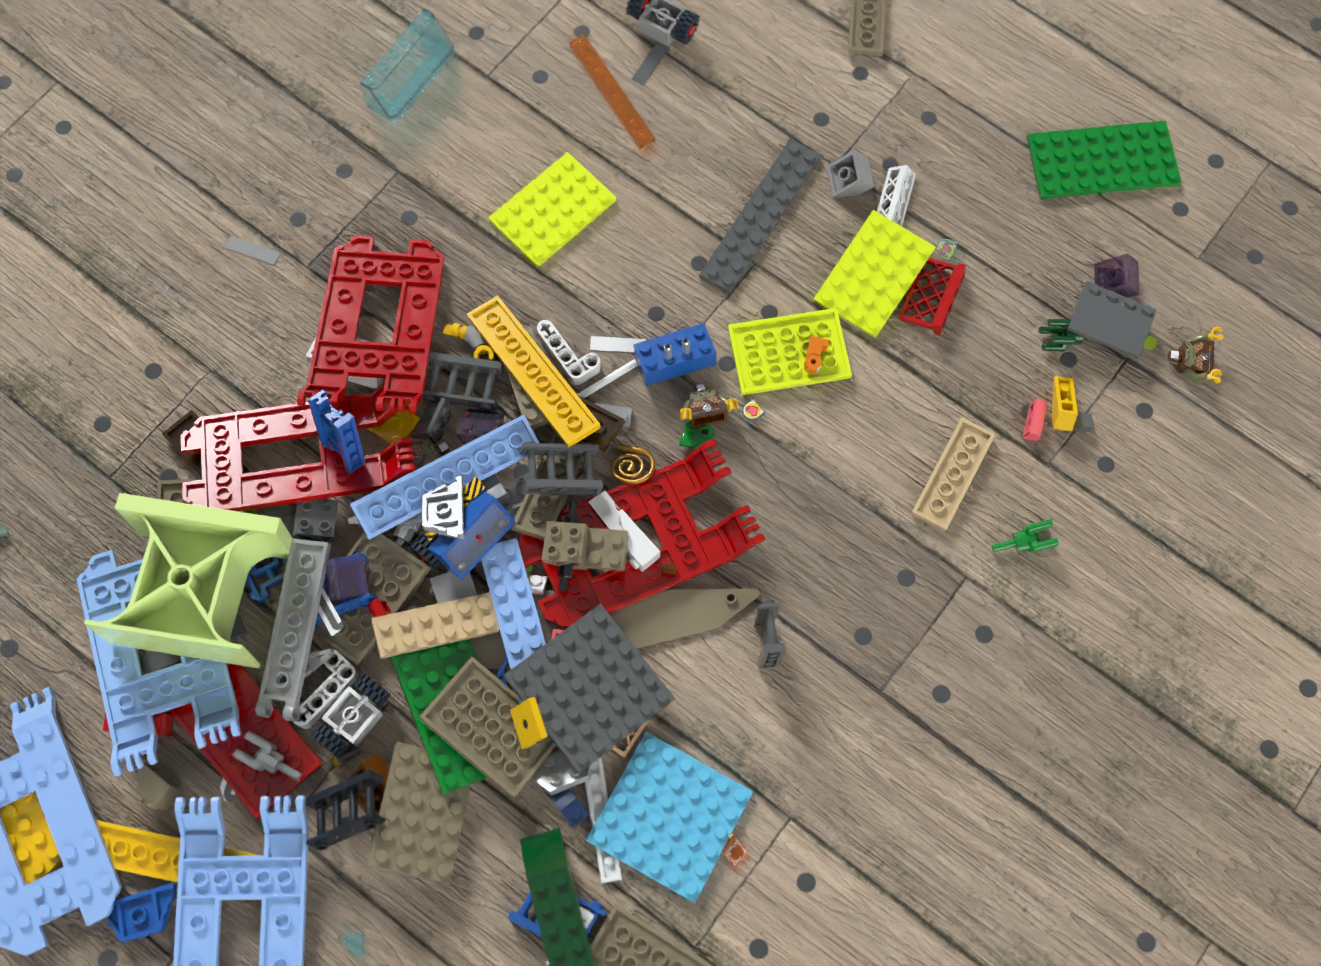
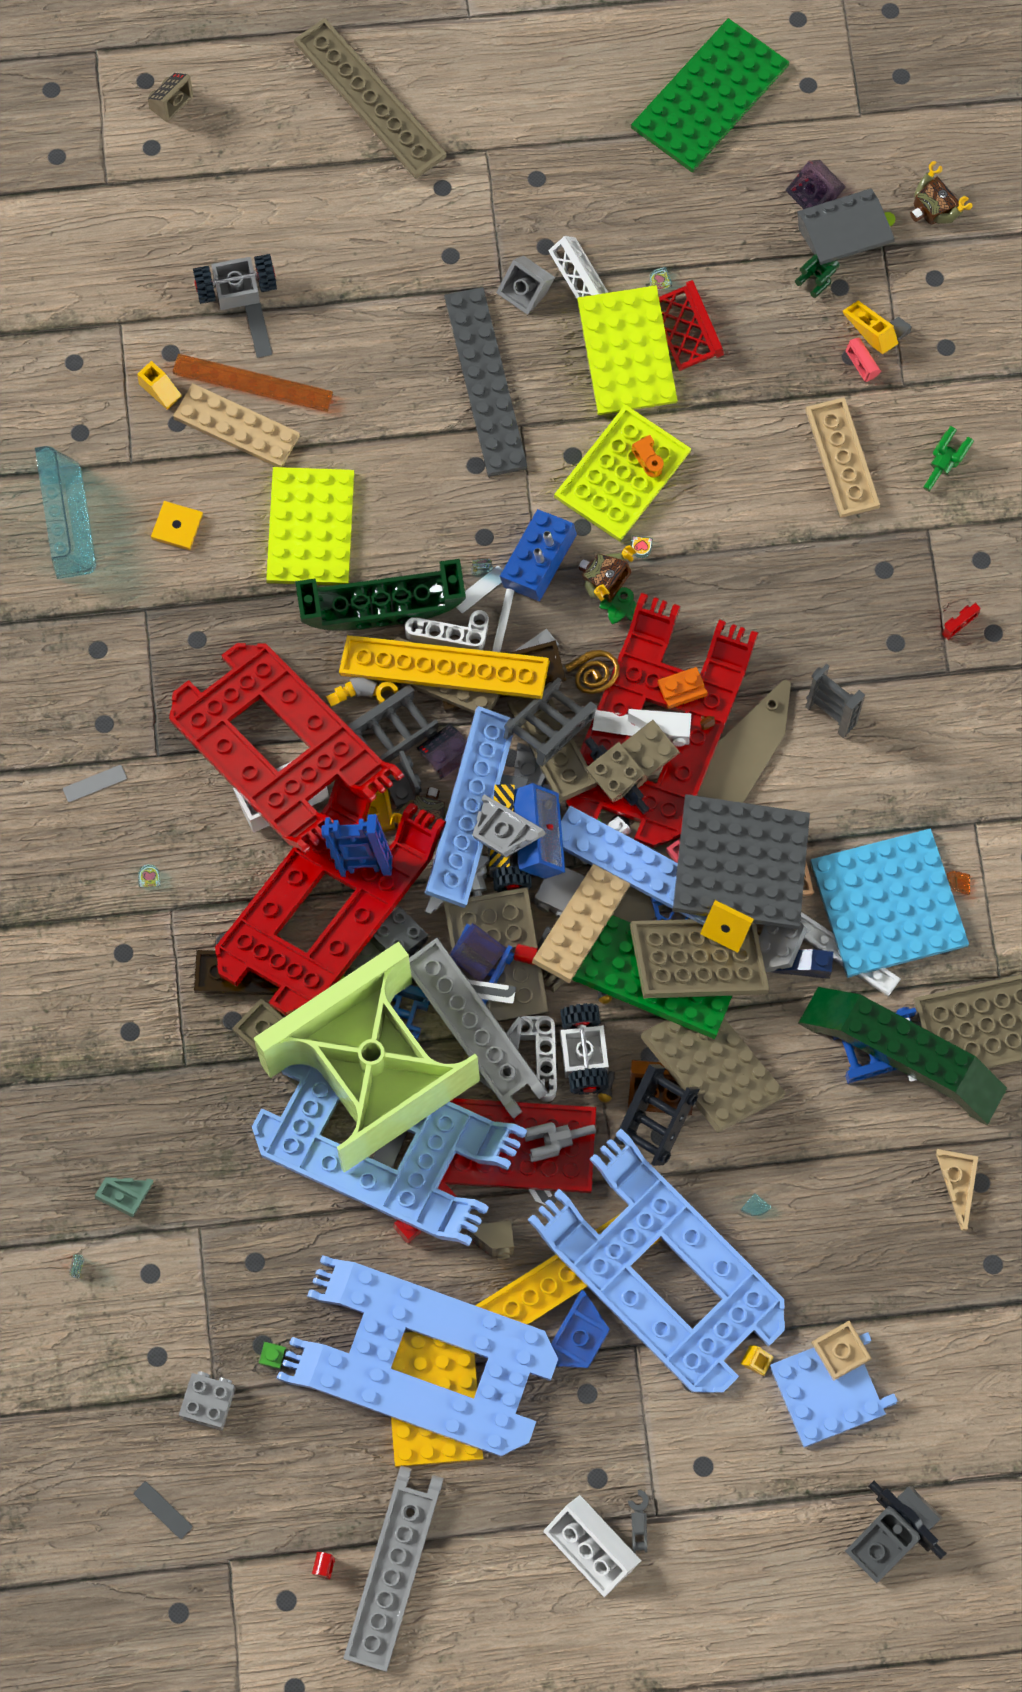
camera: 45 degrees left, 0 degrees up
(219, 337) = (148, 876): none -> clear light blue tile
(471, 137) = (177, 525): none -> yellow tile
(535, 288) = (381, 600): none -> dark green slope
(549, 41) = (158, 385): none -> yellow slope
(573, 109) = (236, 425): none -> tan plate
(631, 329) = (481, 566): none -> clear light blue tile
(677, 529) = (682, 687): none -> orange plate
(933, 663) = (966, 615): none -> red plate

